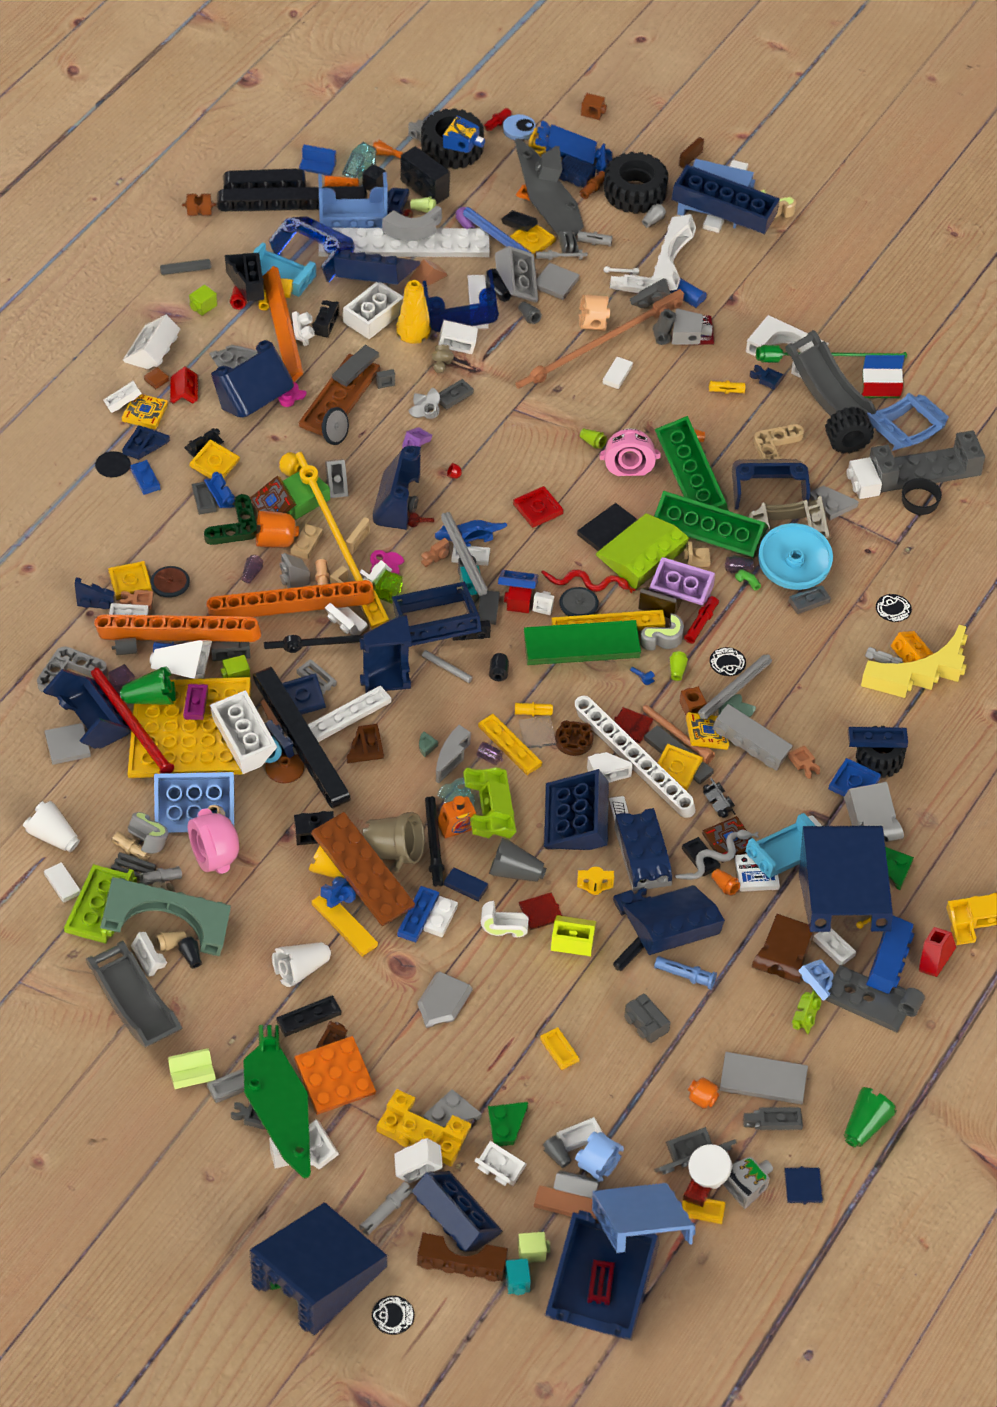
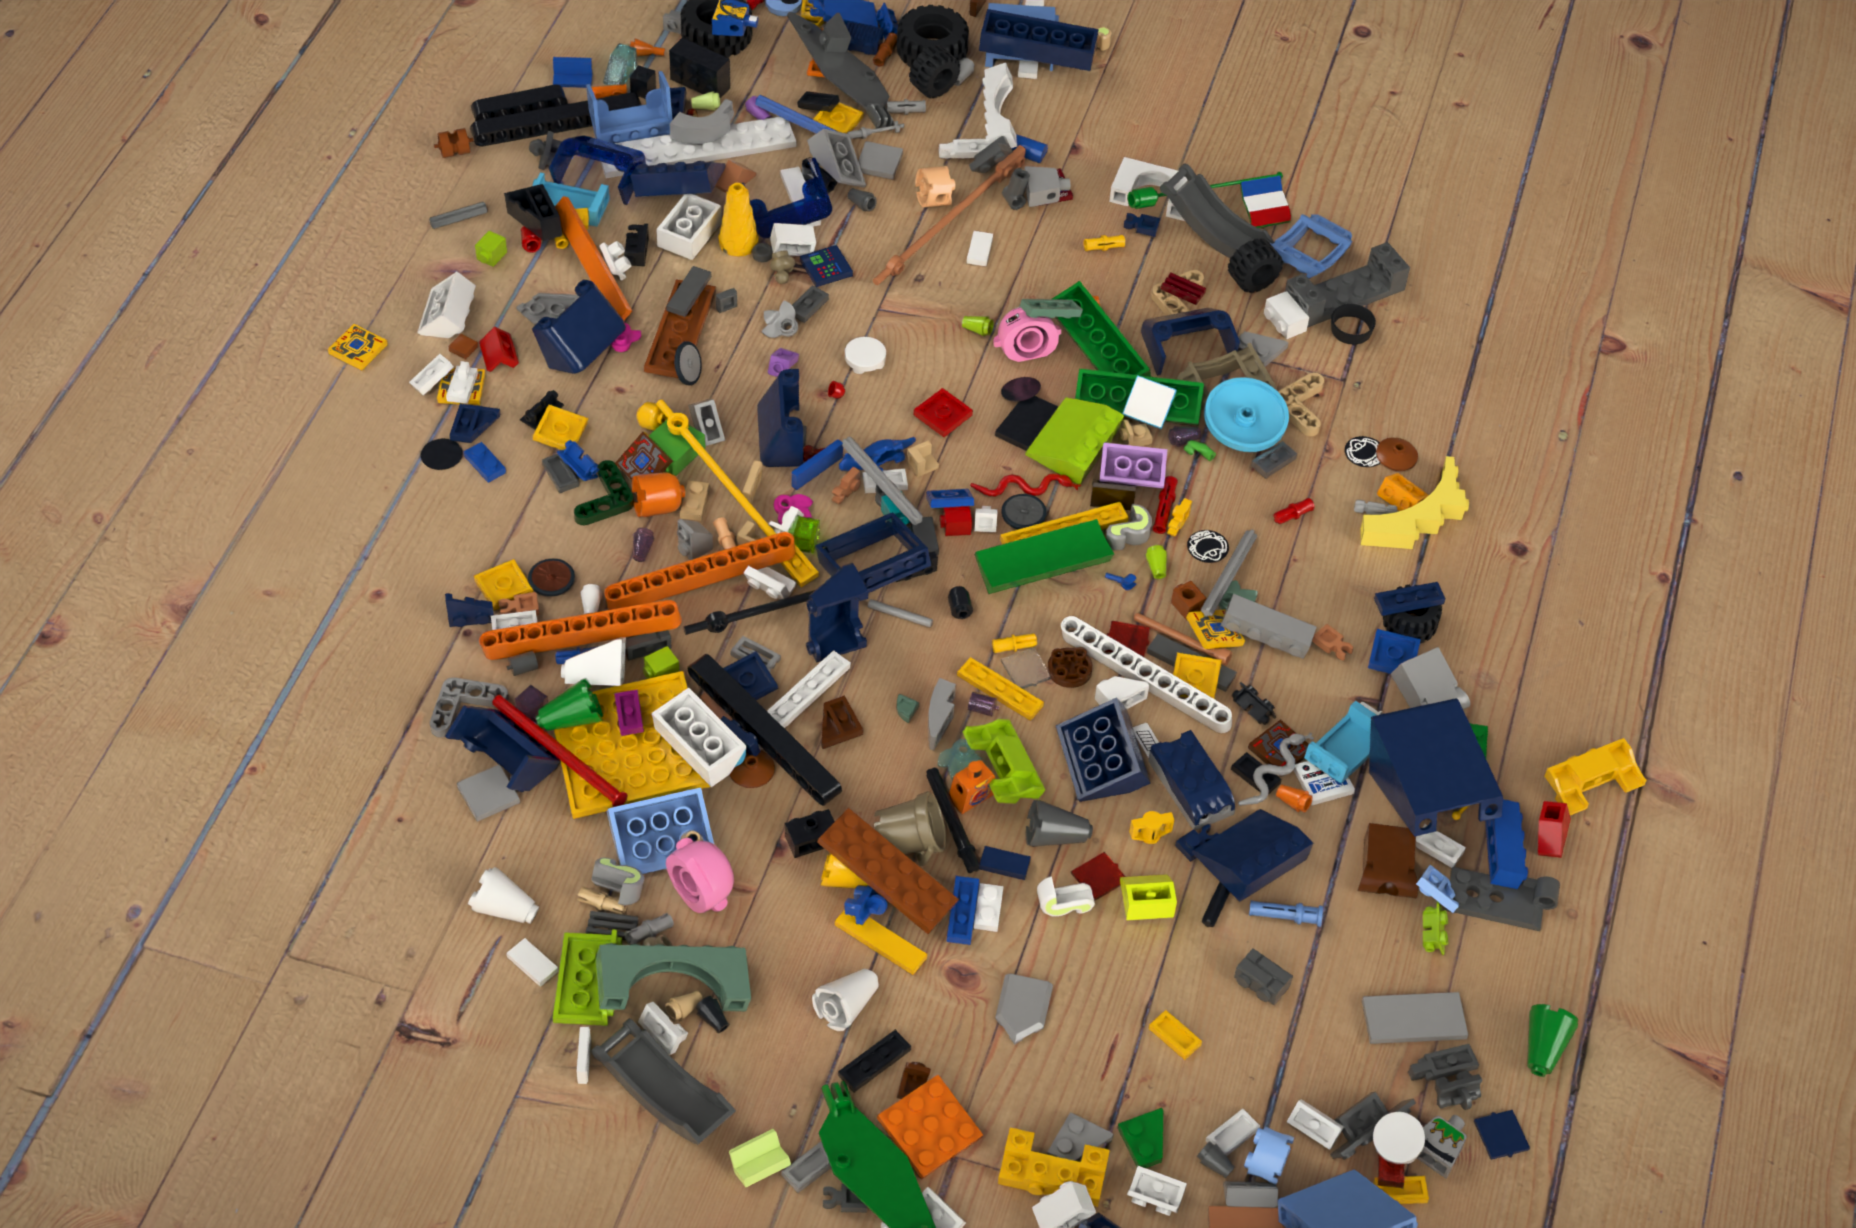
camera: 15 degrees left, 0 degrees up
(70, 363) = (357, 346): none -> yellow tile
(79, 961) = (583, 1055): none -> white tile
(145, 409) = (462, 383): none -> white hinge
(196, 604) = (591, 598): none -> white cone
(269, 221) = (545, 149): none -> dark grey hips
(417, 530) = (817, 464): none -> blue tile
(429, 343) = (762, 252): none -> dark grey tile
(480, 364) = (826, 266): none -> dark blue tile
(488, 445) = (865, 354): none -> white tile
(507, 542) = (920, 459): none -> tan panel
(611, 499) = (1021, 389): none -> black sticker
(626, 212) = (934, 71): none -> black tyre
(635, 271) = (961, 135): white hinge -> none
(648, 1142) = (1315, 1124): none -> white plate
(653, 434) = (1050, 308): none -> sand green plate
(703, 1093) = (1357, 1051): orange head -> none
(712, 630) = (1180, 514): none -> yellow plate
(715, 530) = (1149, 402): none -> white tile
(778, 1142) = (1460, 1091): none -> dark grey hips
(782, 437) = (1182, 288): none -> dark red tile
(811, 646) = (1294, 511): none -> red axle
(846, 553) = (1294, 402): none -> tan beam
(920, 615) = (1397, 454): none -> dark orange dish

